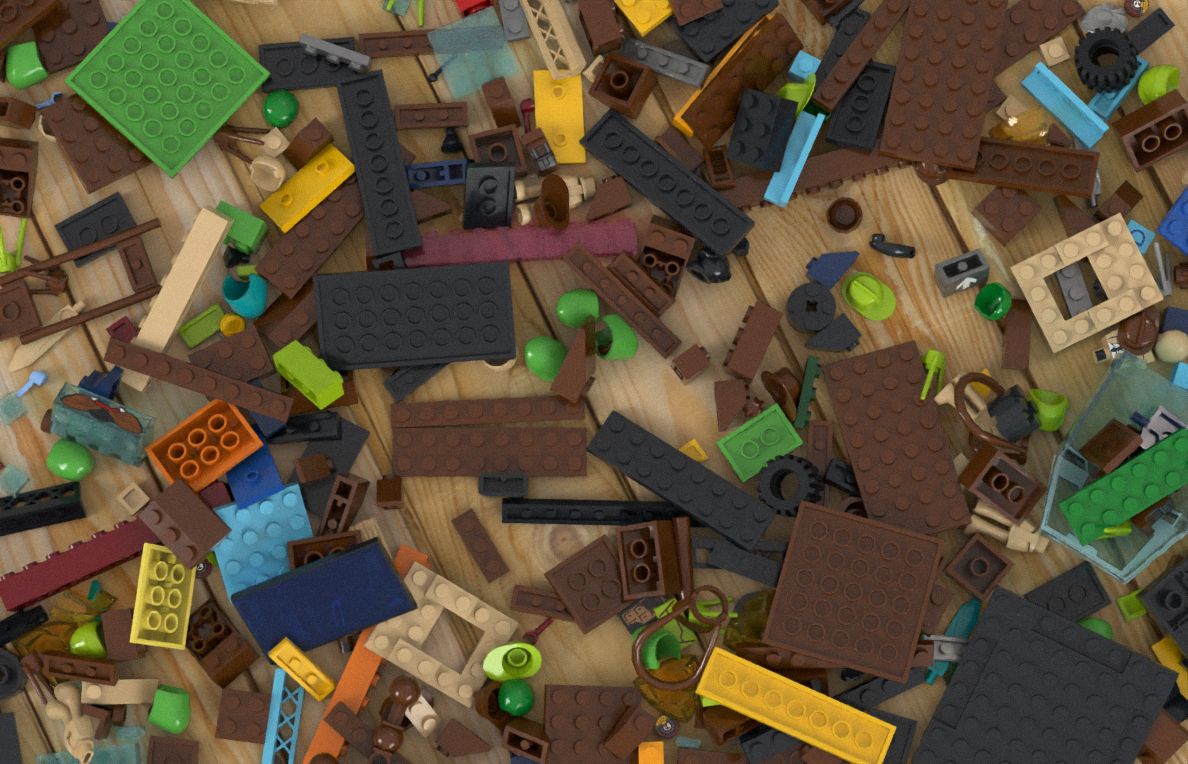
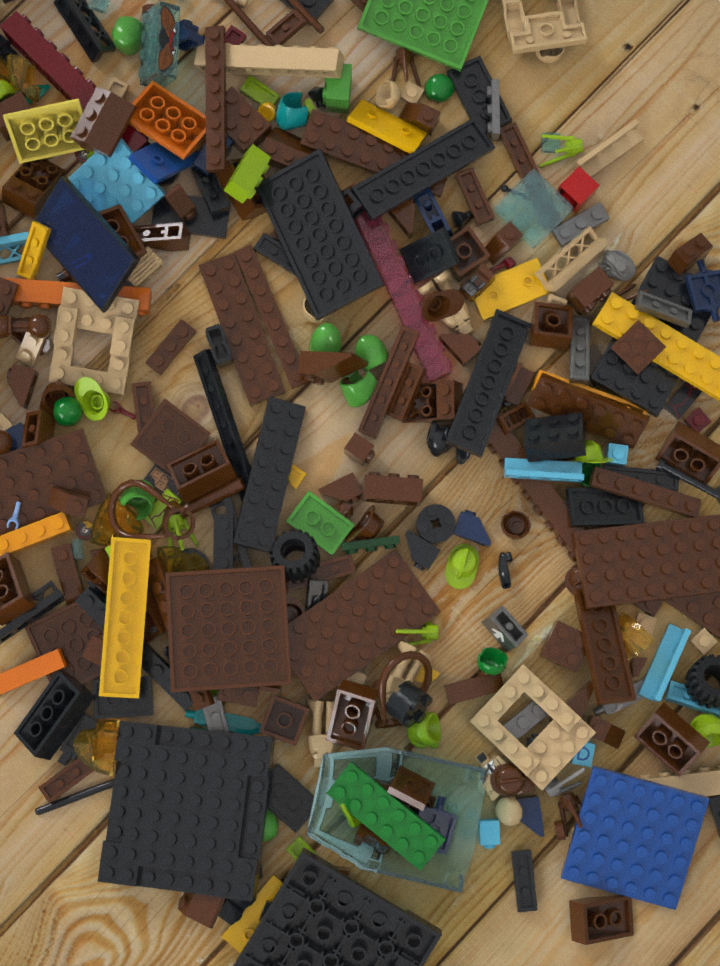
camera: 70 degrees right, 0 degrees up
(390, 493) = (184, 266): reddish brown slope -> none

